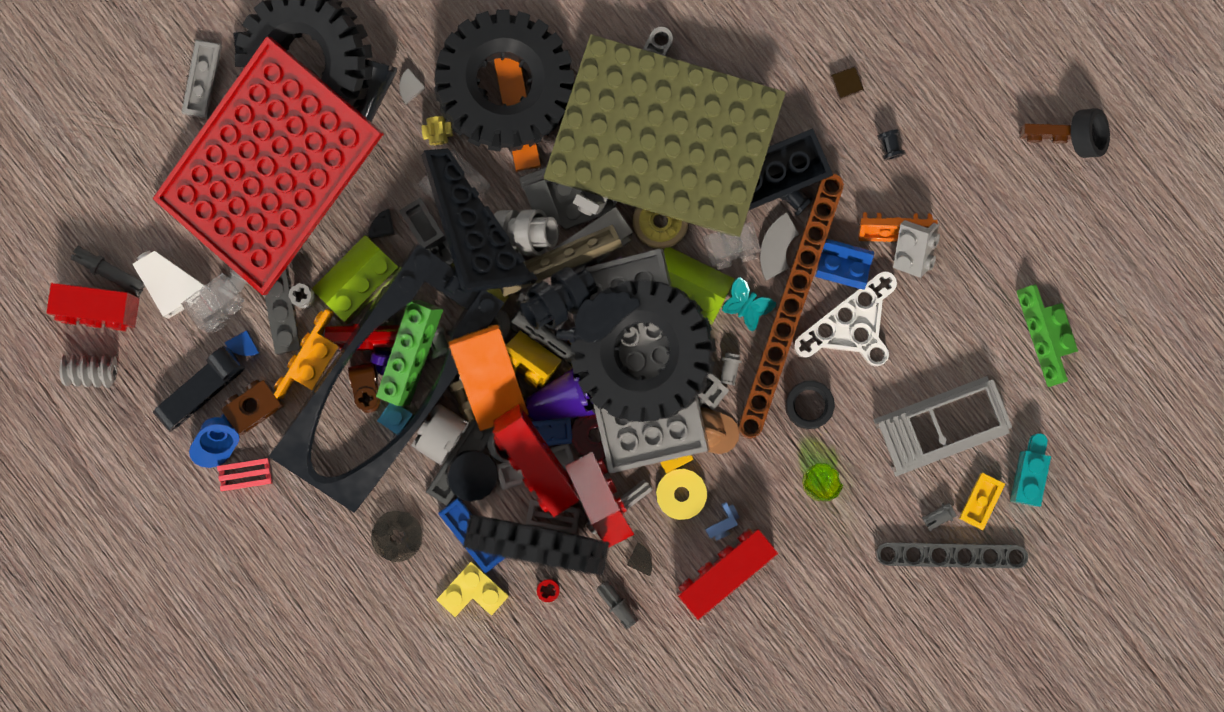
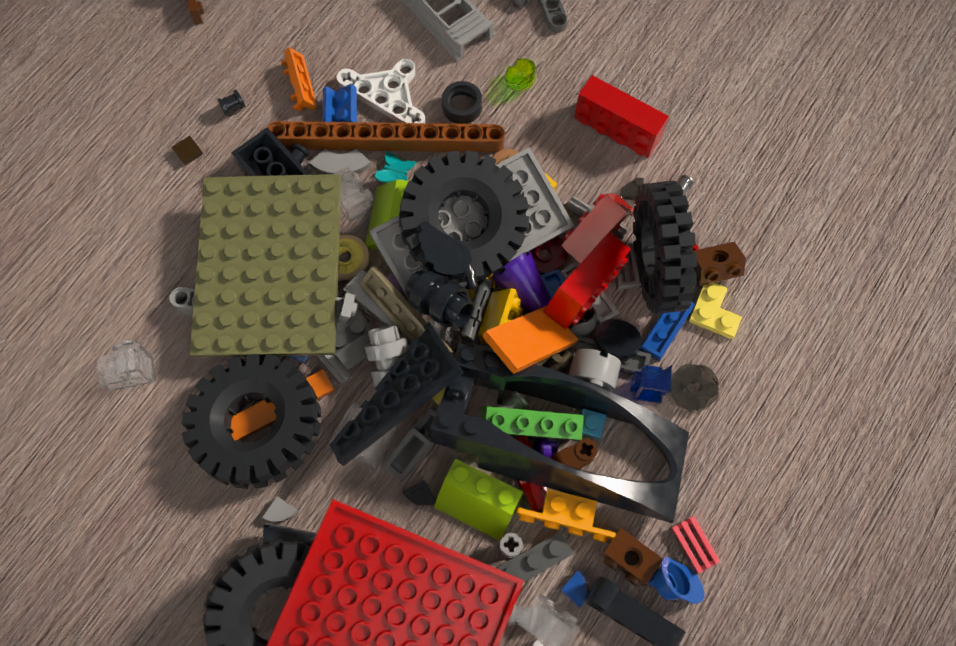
camera: 110 degrees left, 15 degrees down
(410, 488) = (651, 383): none -> clear blue window
(437, 130) = (315, 469): light yellow gear -> none
(526, 625) = (719, 263): none -> reddish brown brick
(695, 487) = (572, 164): light yellow tile -> none
(722, 528) = (581, 134): medium blue bracket -> none
(916, 248) = (311, 59): light grey bracket -> none

